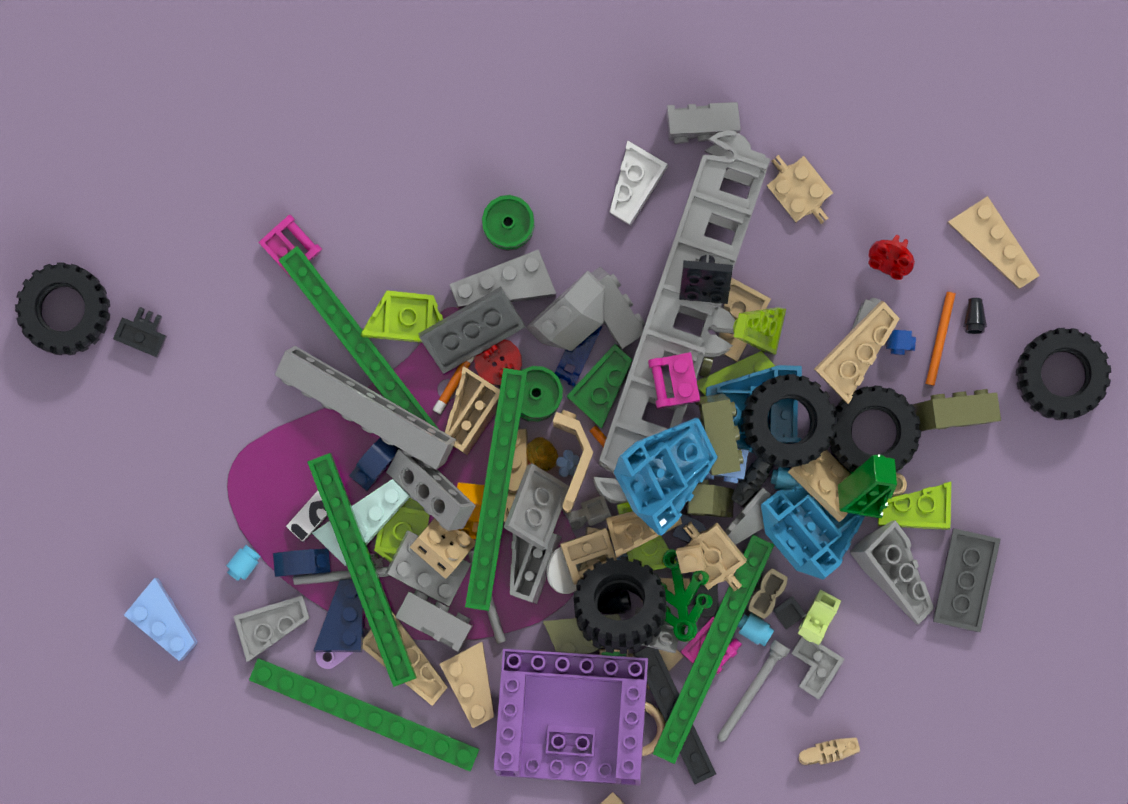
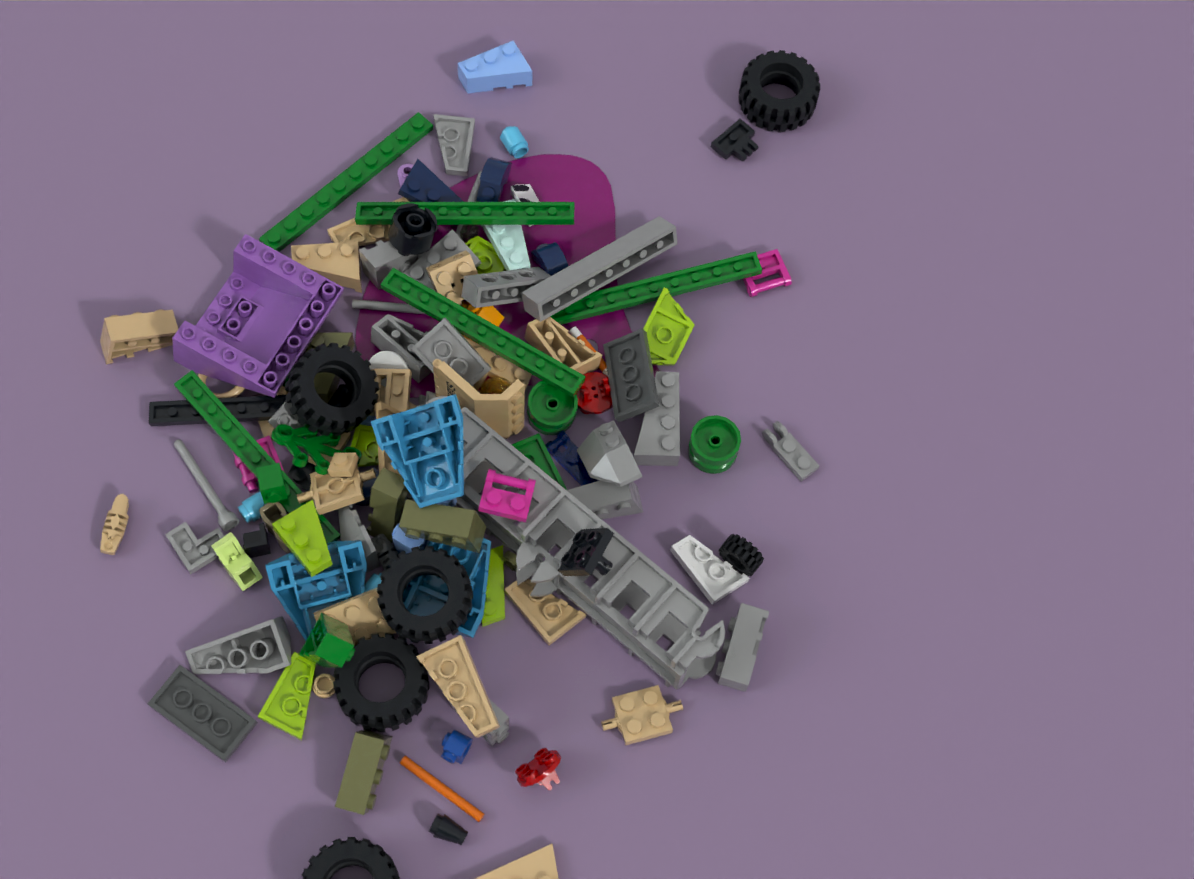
camera: 105 degrees right, 20 degrees down
(424, 607) = (412, 229): none -> black brick
(479, 147) = (791, 452): none -> light grey hinge
(612, 155) = (741, 554): none -> black tyre
(738, 616) = (271, 483): none -> green brick
(760, 328) = (523, 611): lime wing -> none
(777, 559) = (305, 538): none -> lime wing

